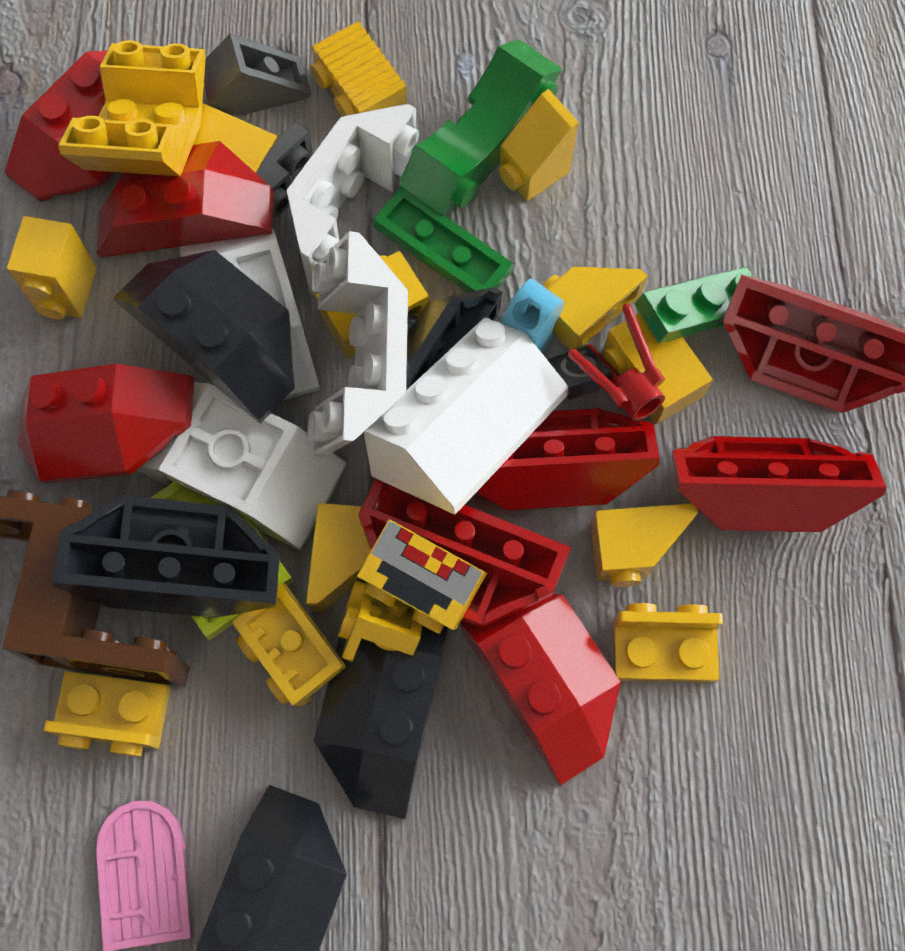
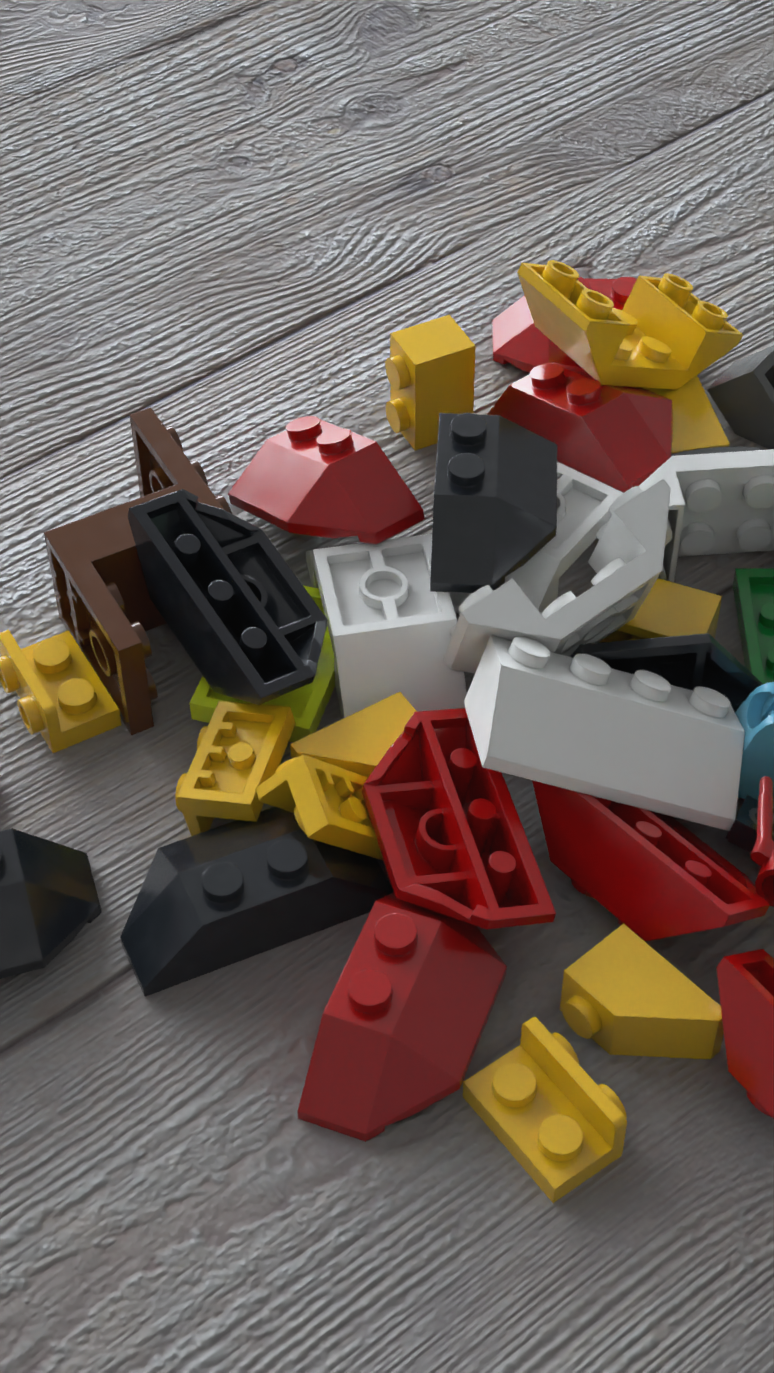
camera: 55 degrees right, 25 degrees down
(421, 576) = (394, 788): brick -> none

